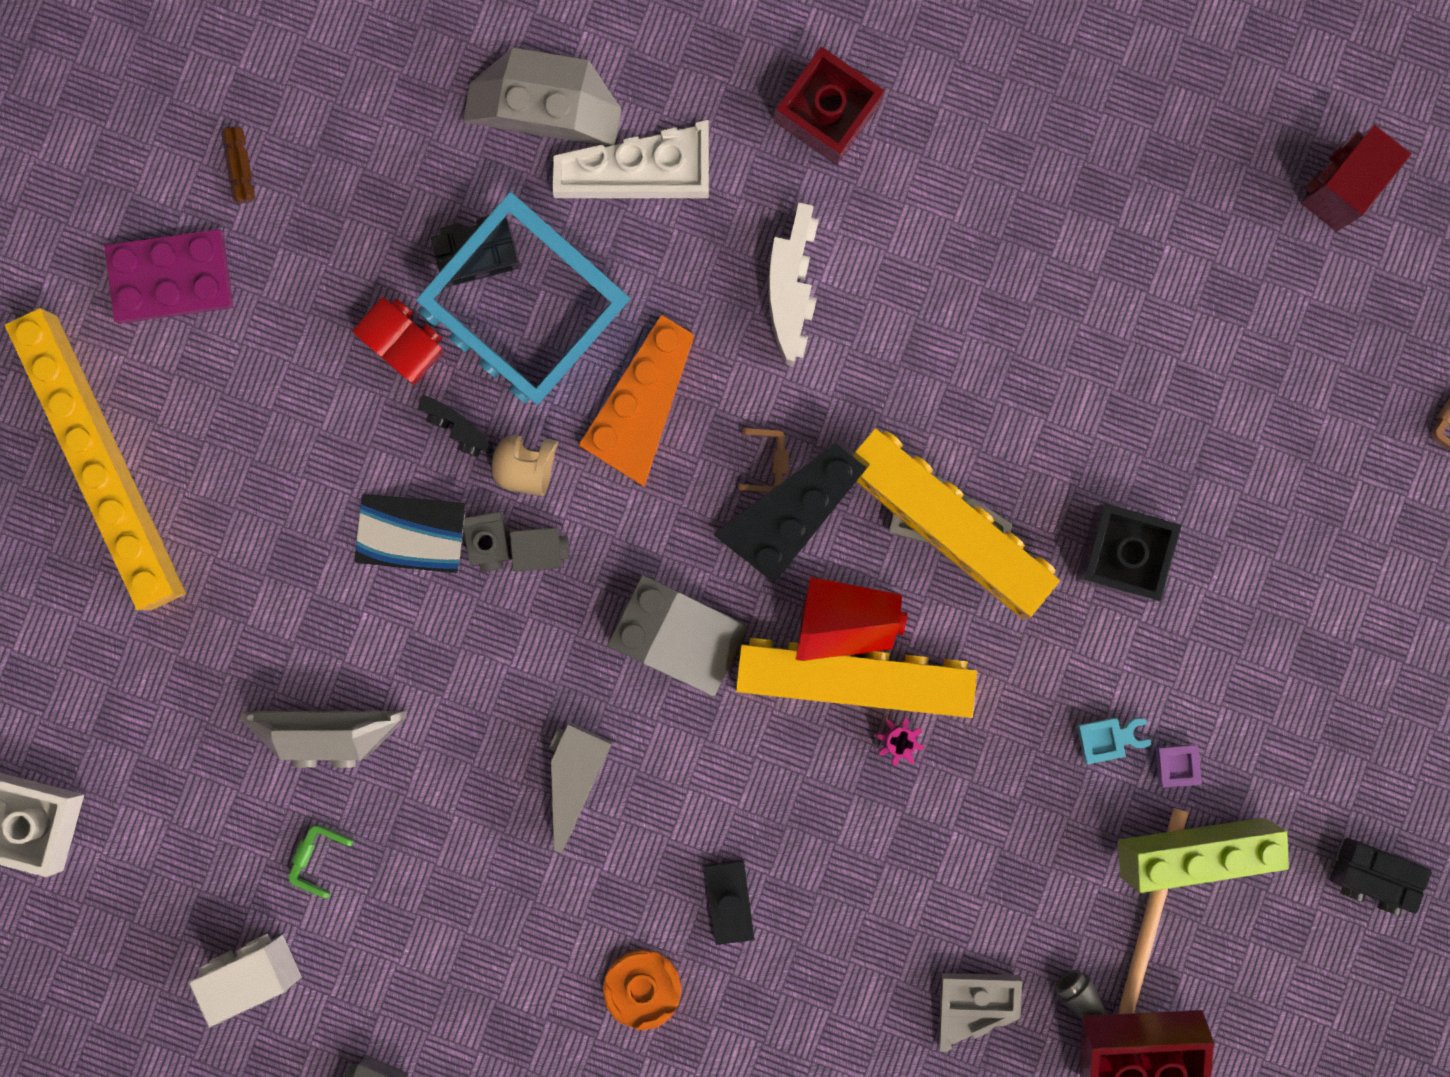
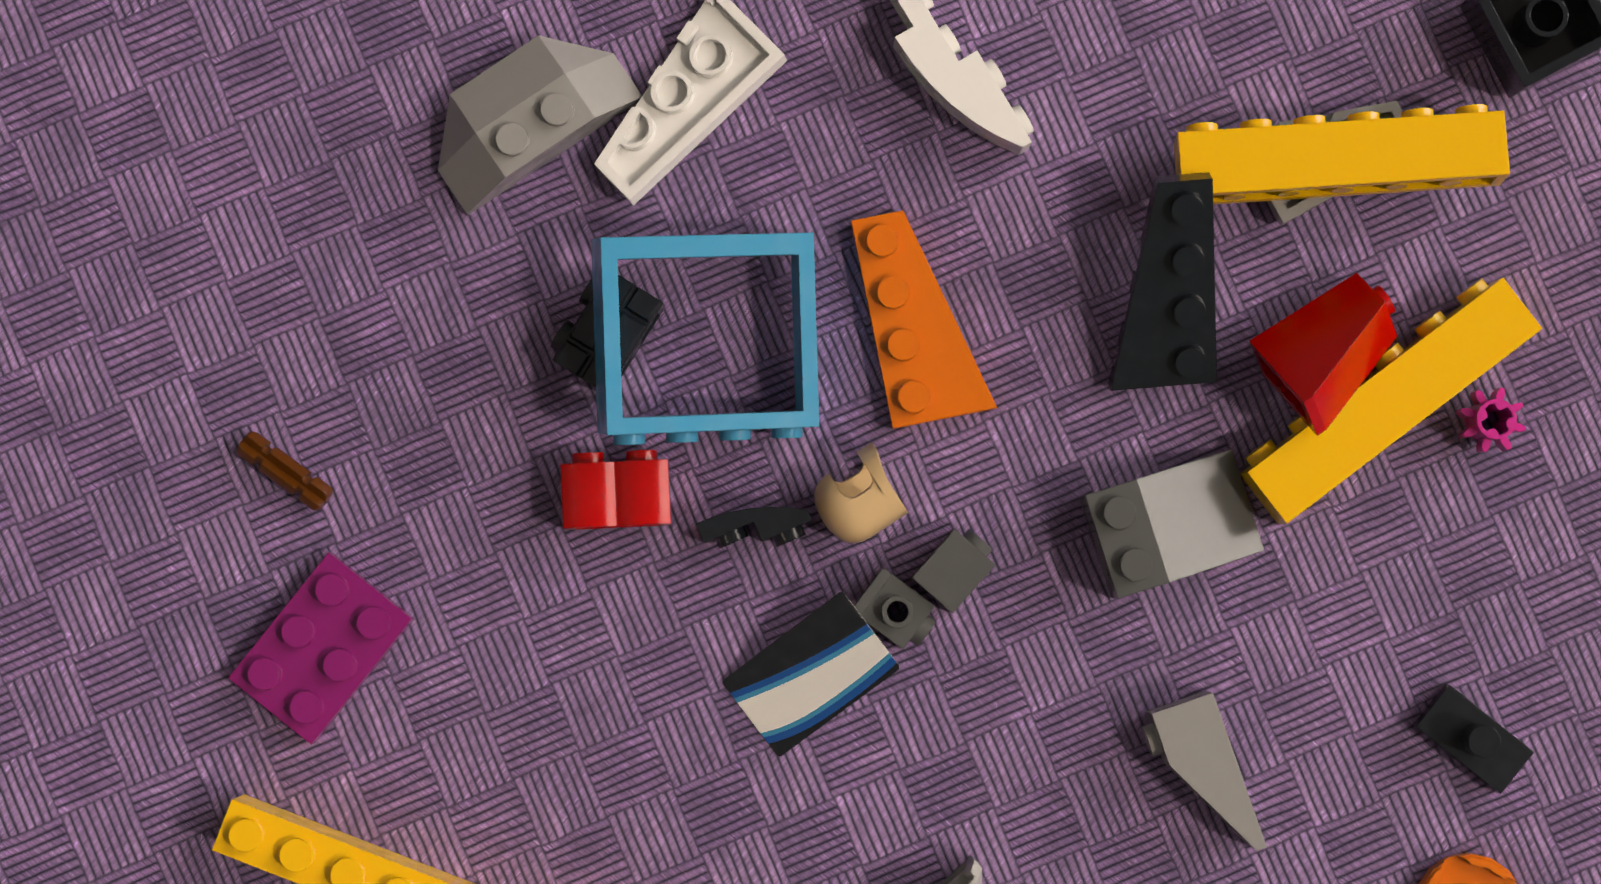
camera: 35 degrees left, 0 degrees up
(780, 459) = (1105, 254): medium nougat piece -> none

